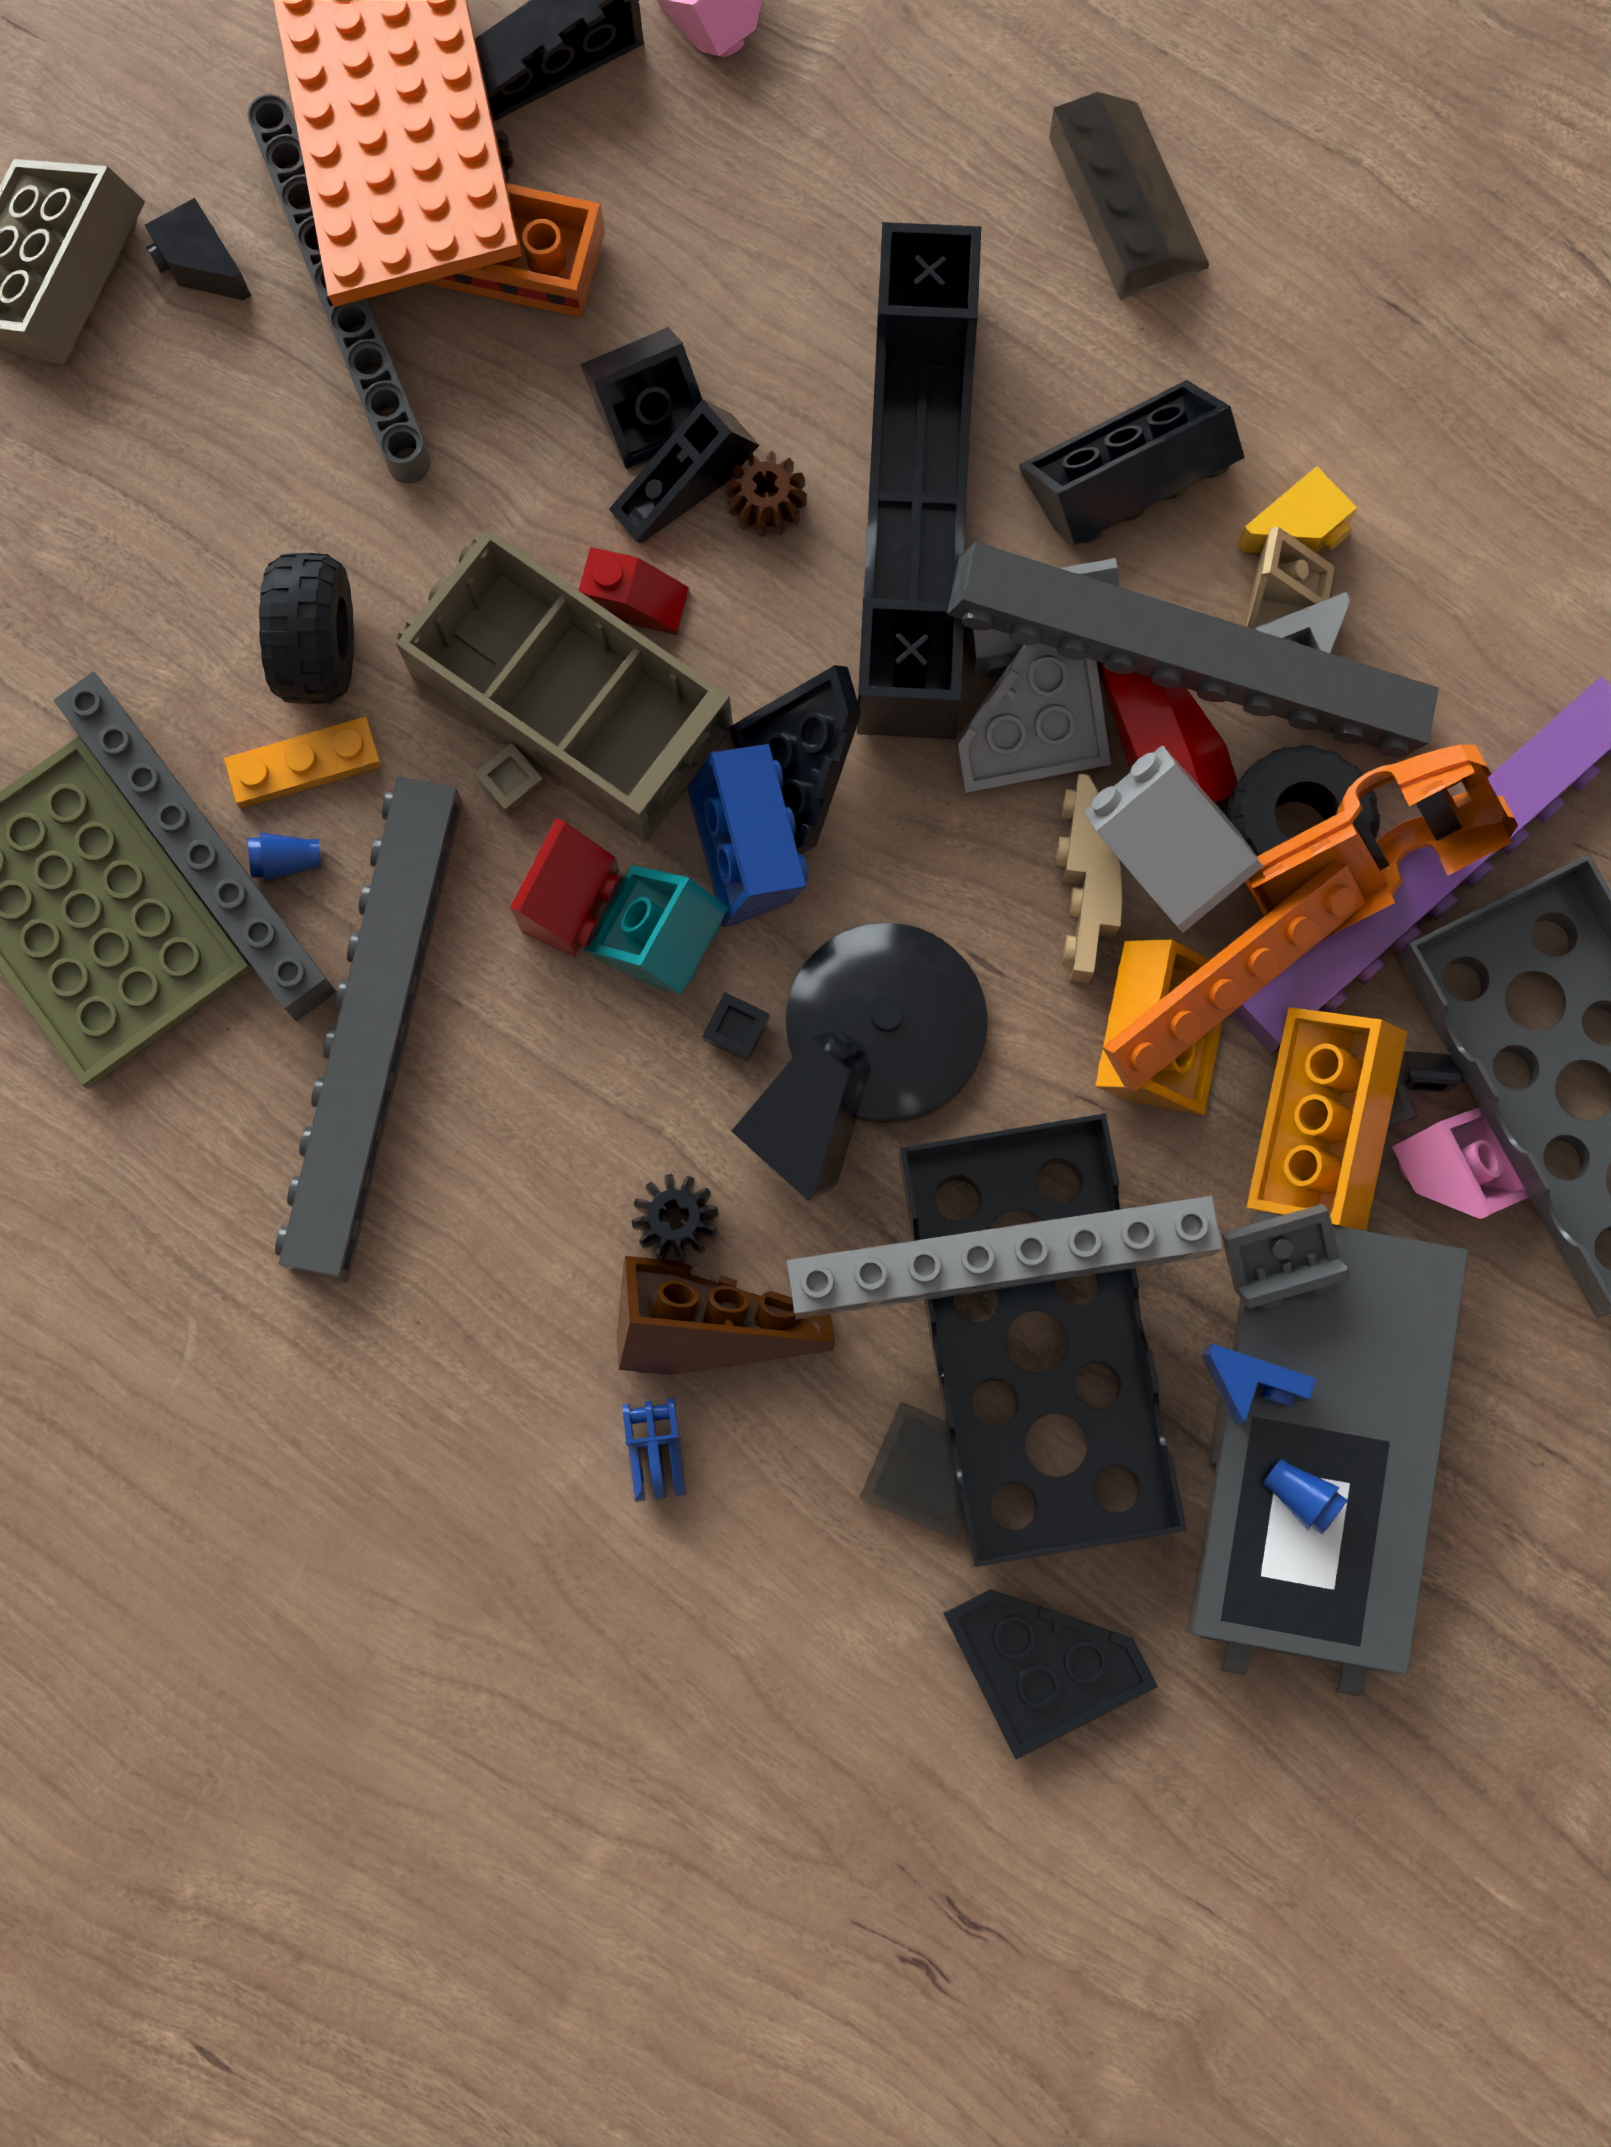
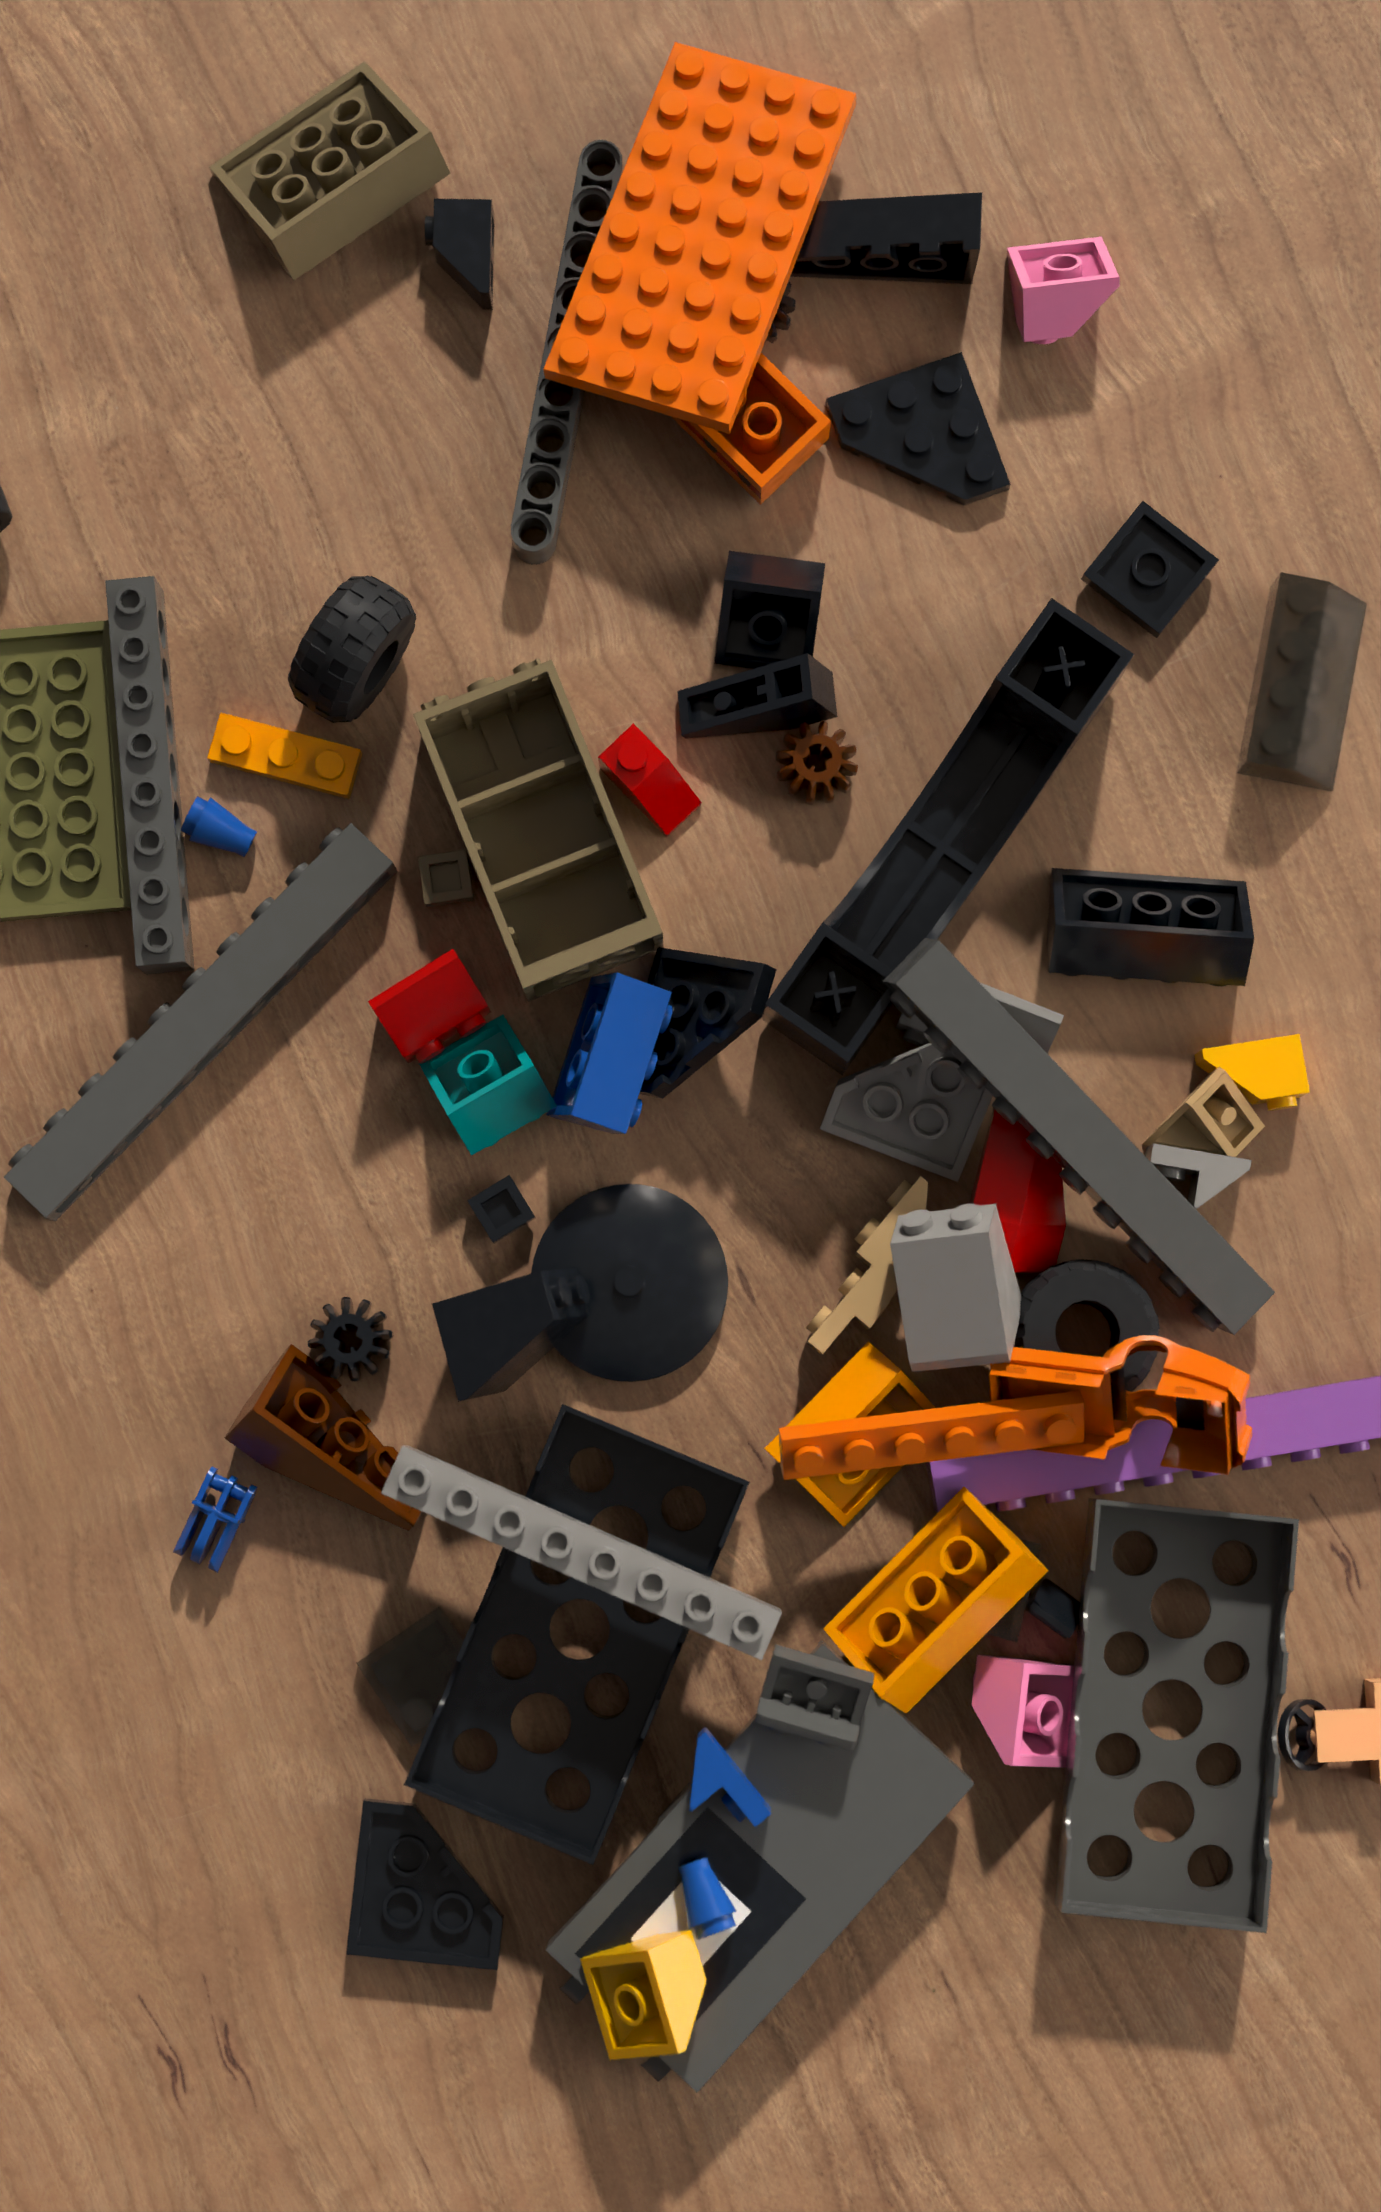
camera: 30 degrees right, 5 degrees up
(681, 177) = (924, 429): none -> black plate
(941, 176) = (1149, 569): none -> black plate
(1309, 1612) = (646, 1994): none -> yellow slope

